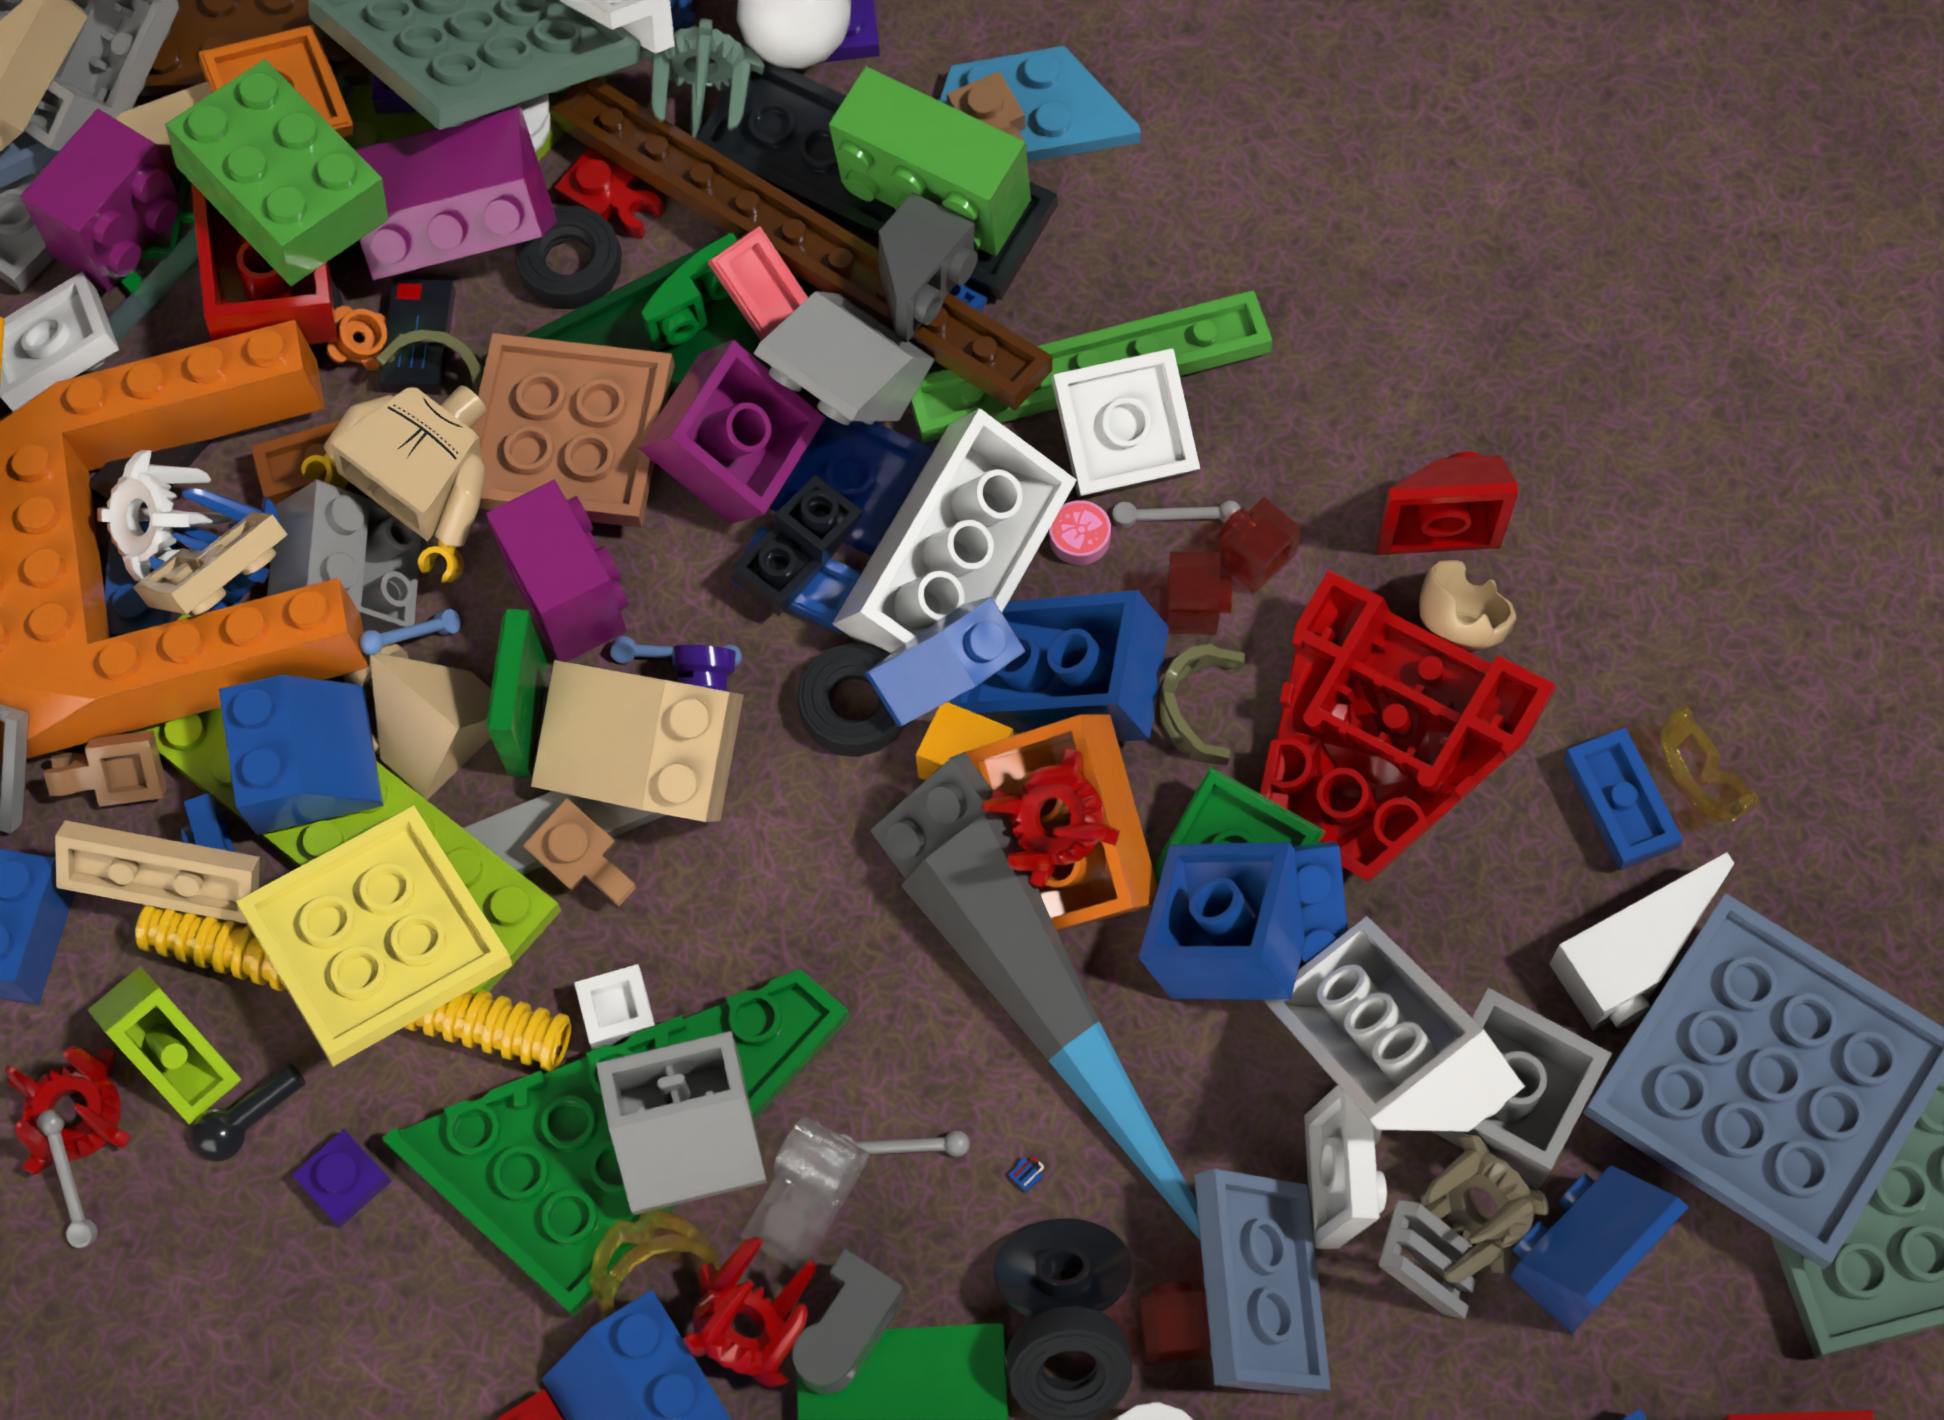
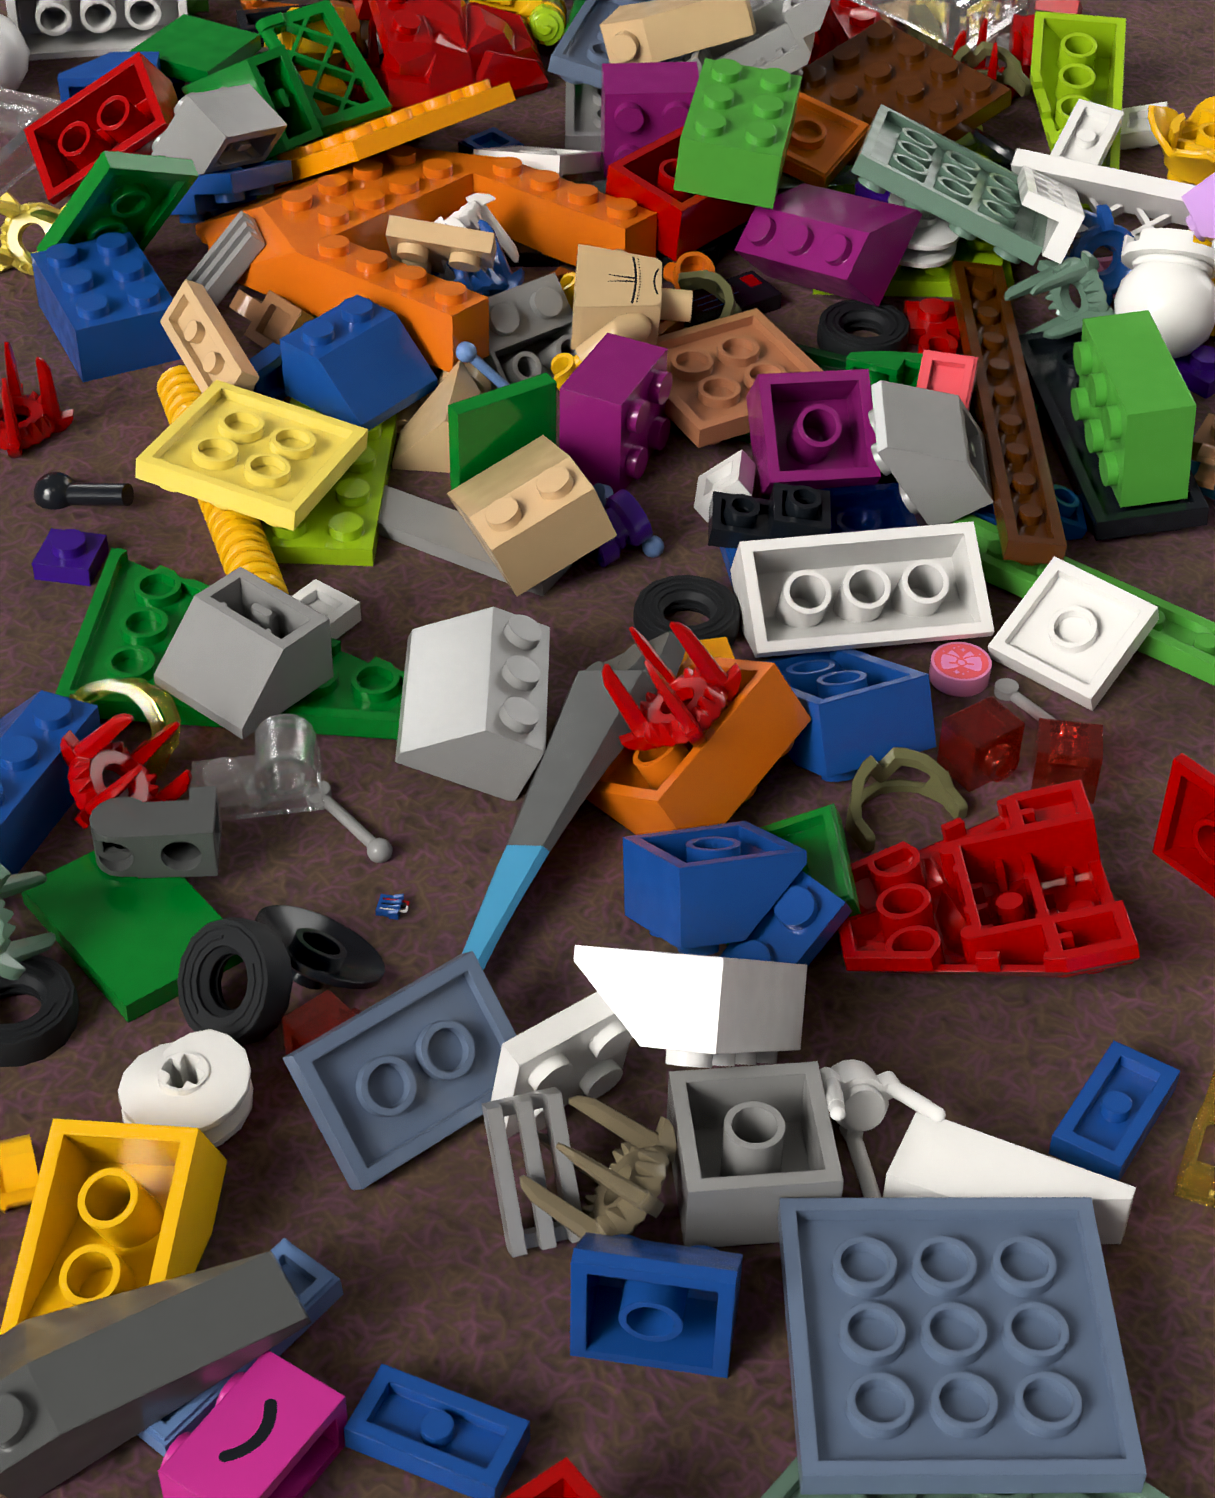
camera: 50 degrees right, 25 degrees down
(164, 1045) = (96, 424): lime slope -> none
(575, 849) = (416, 536): medium nougat plate -> none
(709, 543) = (730, 476): none -> white plate
(861, 954) = (476, 700): none -> light grey slope
(921, 260) = (1047, 438): dark grey slope -> none
(945, 660) = (755, 609): slope -> none
(1464, 612) = (1161, 903): tan hair -> none
(1511, 975) = (859, 1103): none -> white plant

